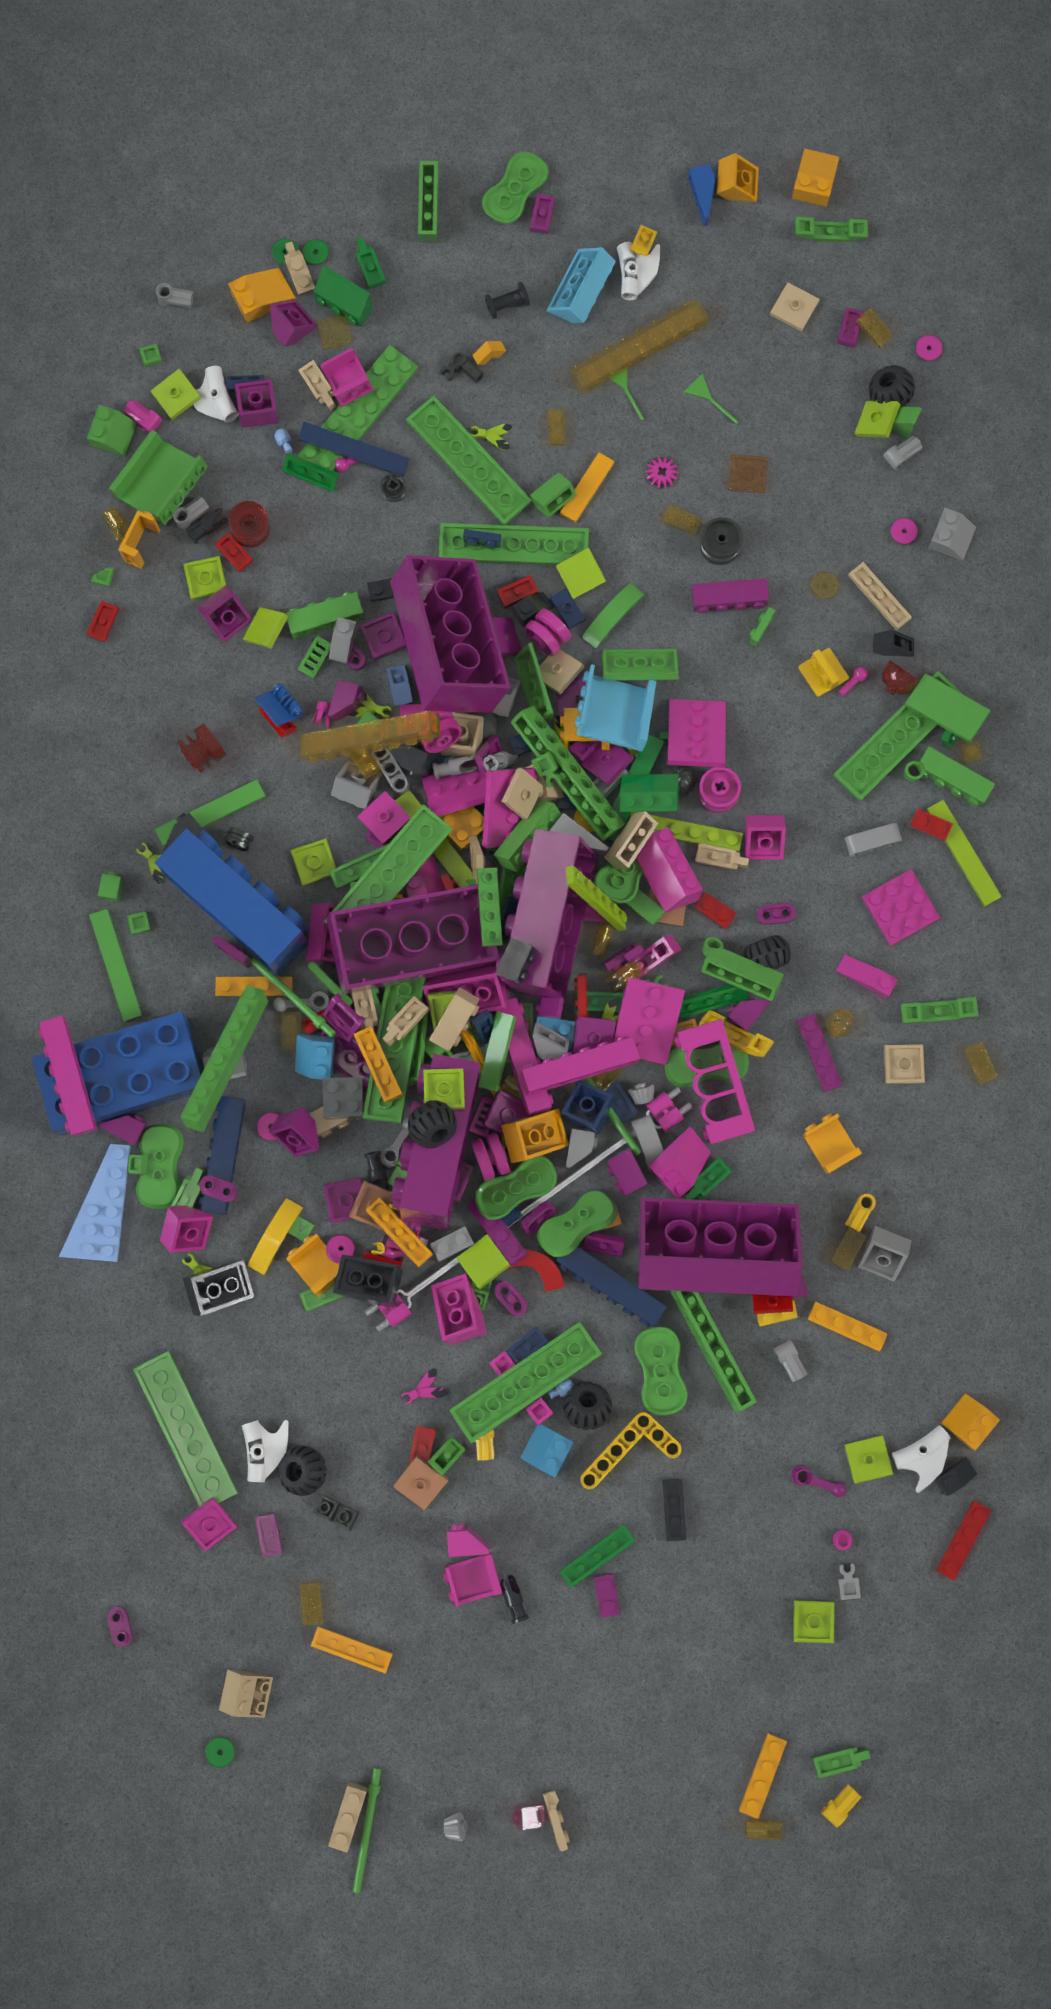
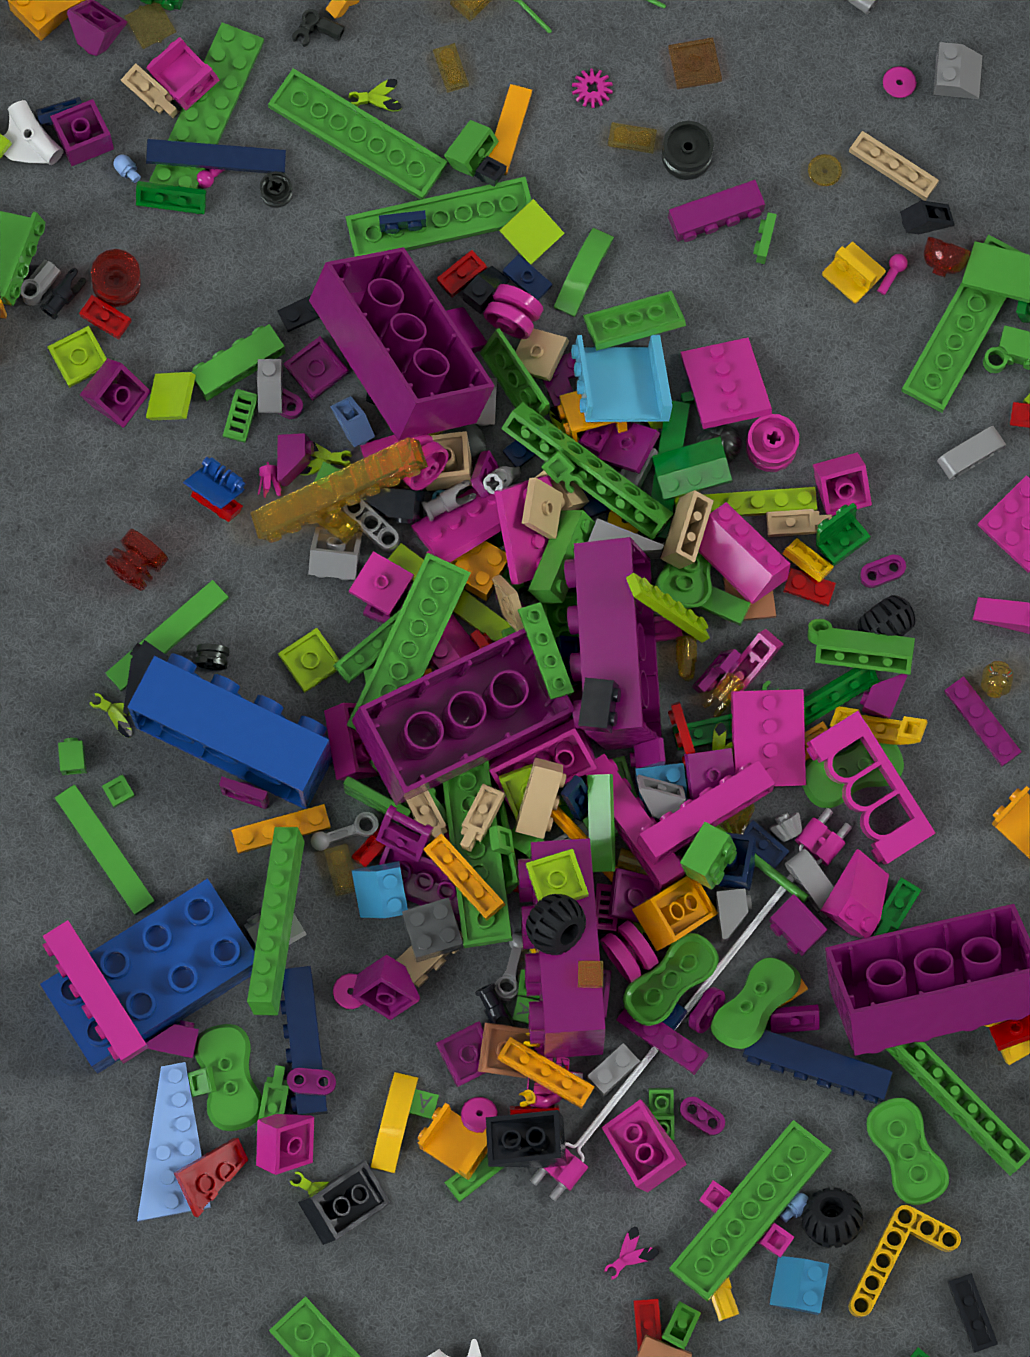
camera: 20 degrees left, 5 degrees down
(122, 1236) = (209, 1173): none -> red wing
(317, 1020) = (374, 847): bright green bar -> none
(415, 1043) = (501, 840): none -> bright green tile
(447, 1170) = (590, 974): none -> clear yellow tile
(483, 1261) = (657, 1079): lime tile -> none
(527, 1345) = (738, 1166): dark blue plate -> none
(545, 1267) = (728, 1064): red arch -> none
(562, 517) = (490, 171): none -> black tile
(571, 1101) = (709, 856): none -> bright green brick
(720, 889) = (808, 560): none -> yellow plate
(751, 876) = (841, 535): none -> green bracket

